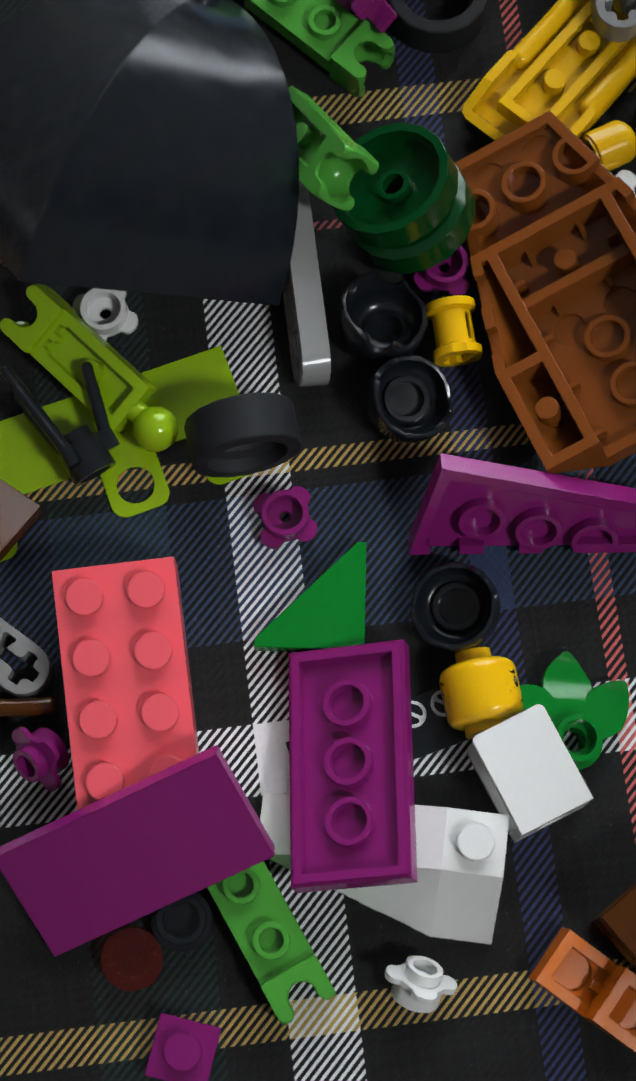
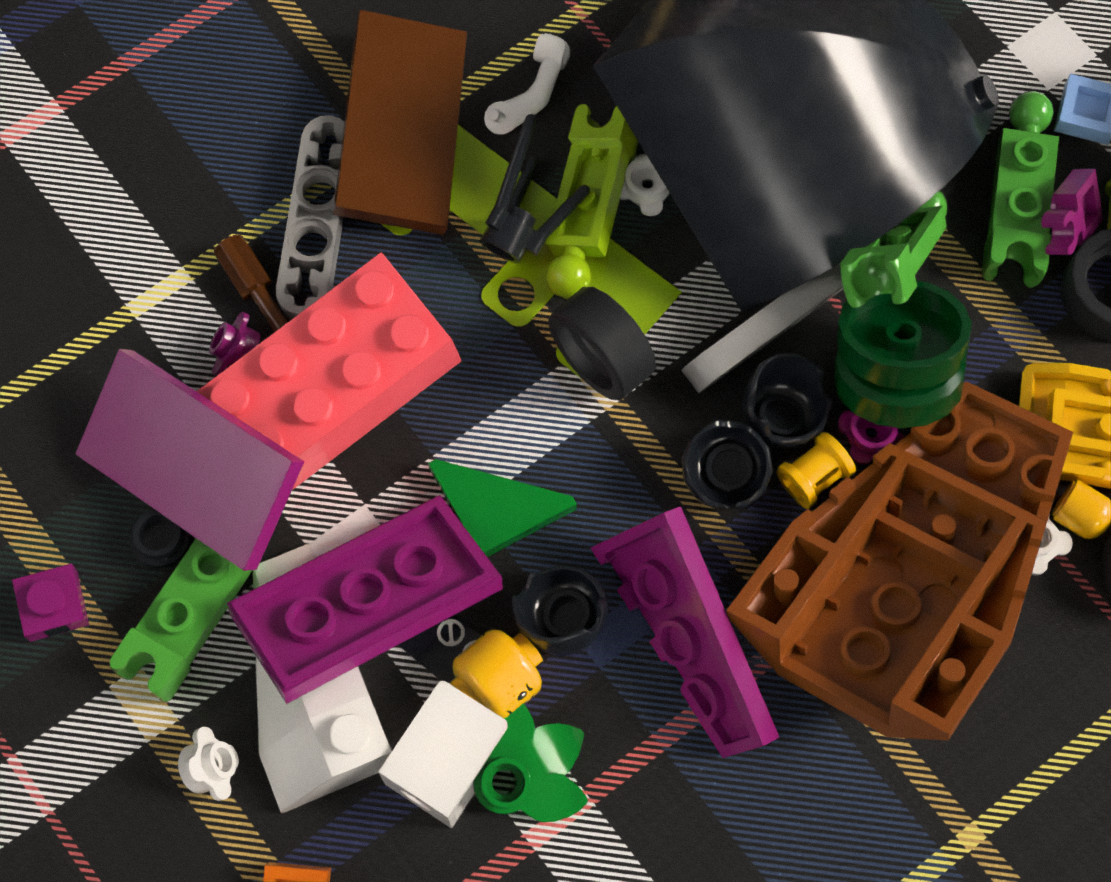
camera: 60 degrees right, 5 degrees down
(132, 959) = (105, 516): clear red plate -> none
(285, 501) = (559, 409): magenta plate -> none

